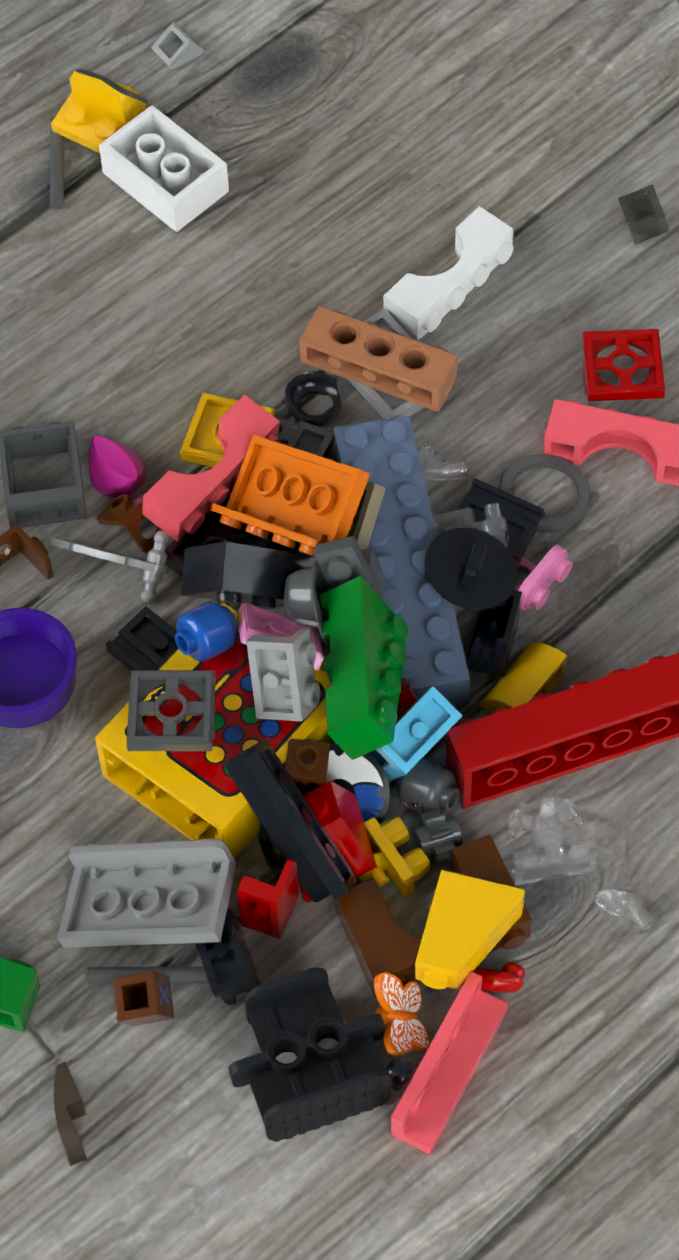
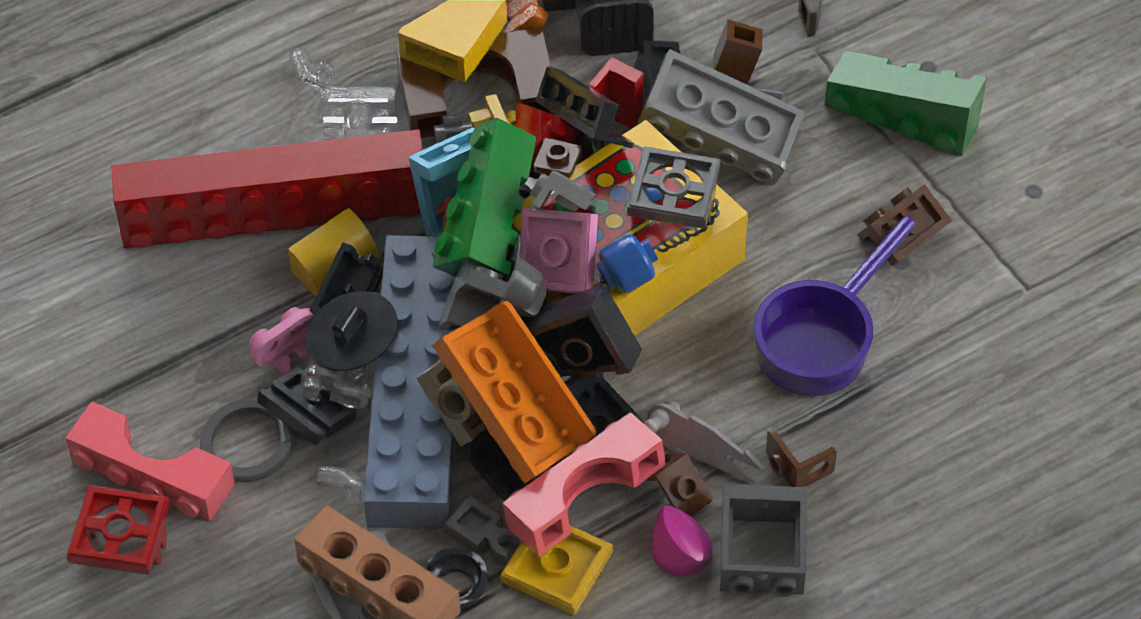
camera: 170 degrees left, 5 degrees down
(144, 642) = (677, 346): black plate -> none

